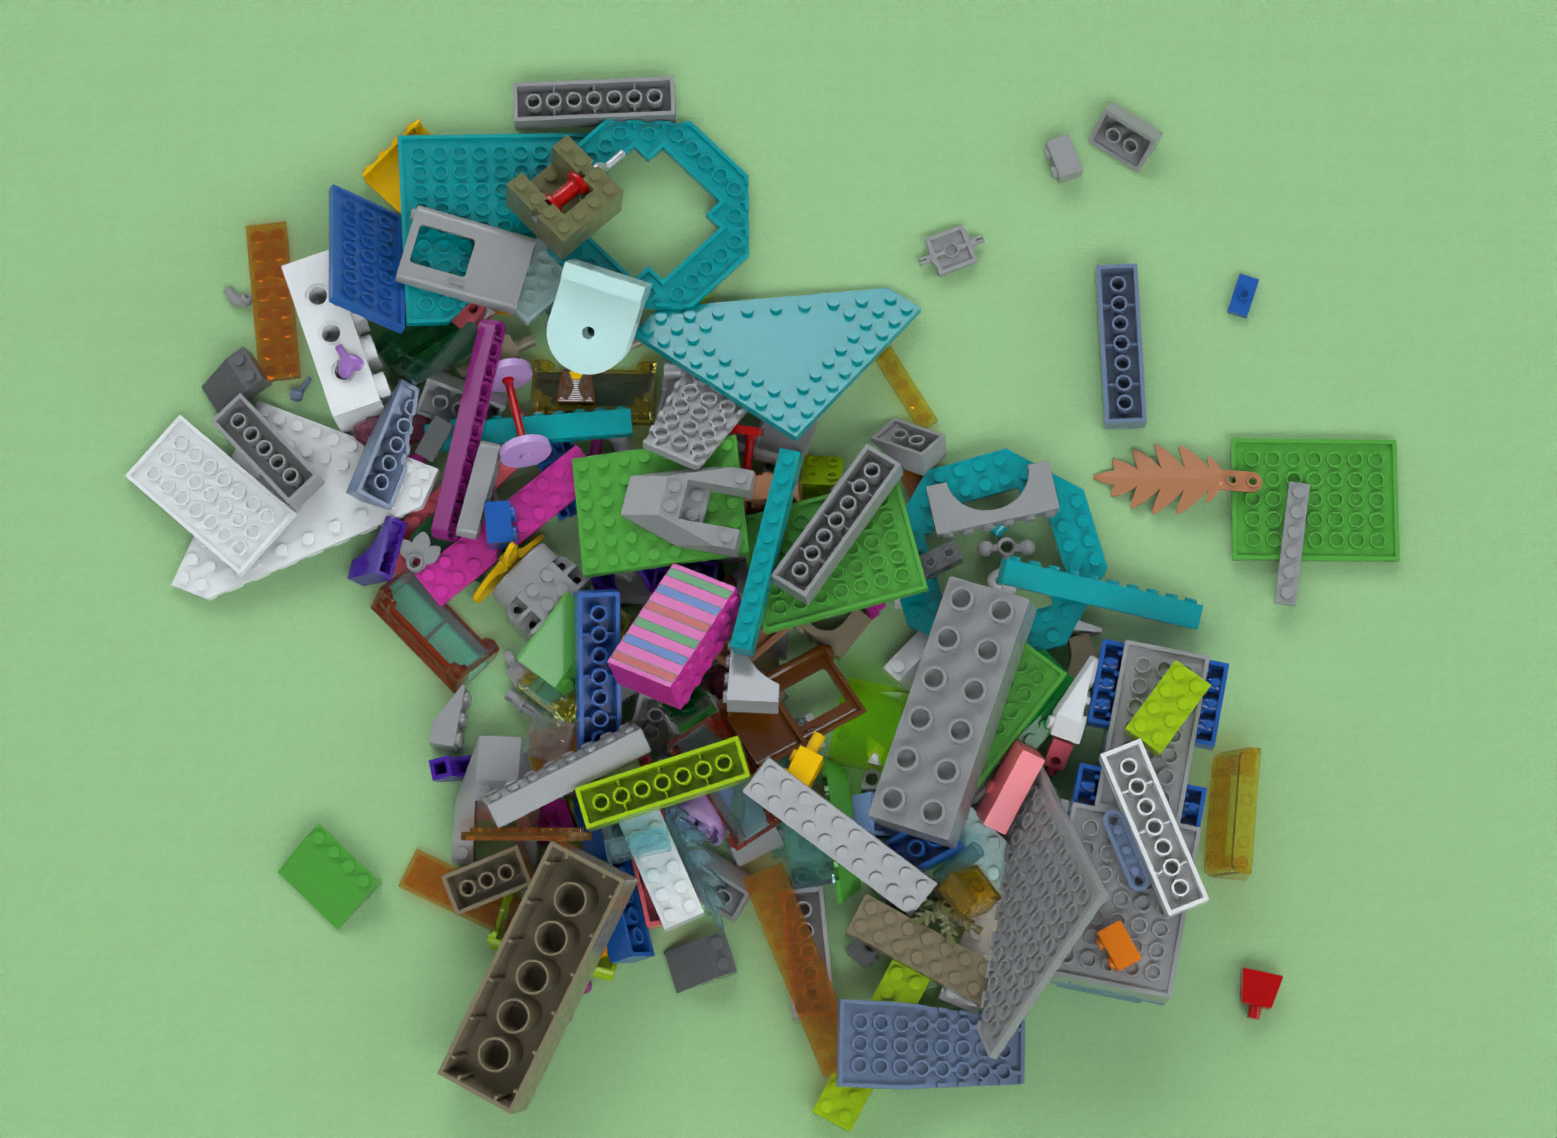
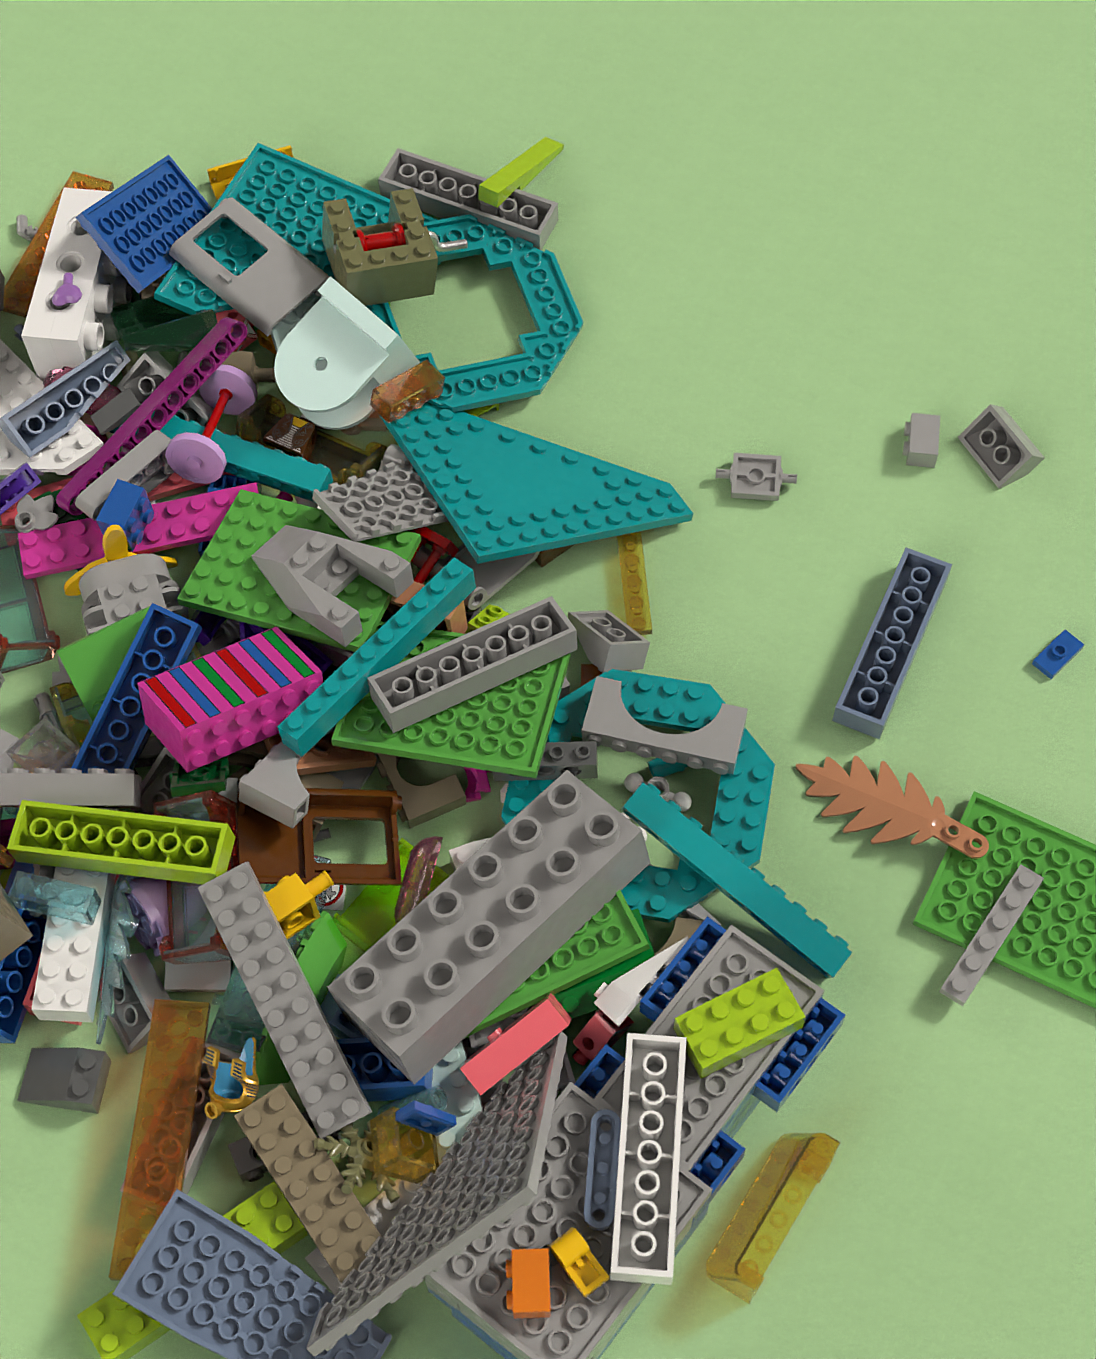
camera: 25 degrees right, 15 degrees down
(625, 57) = (519, 172): none -> lime slope
(656, 314) = (407, 391): none -> clear orange brick
(832, 910) = (233, 1083): none -> piece
(875, 705) = (417, 876): none -> brick
(976, 868) = (425, 1118): none -> blue plate
(1141, 918) = (578, 1262): none -> yellow plate

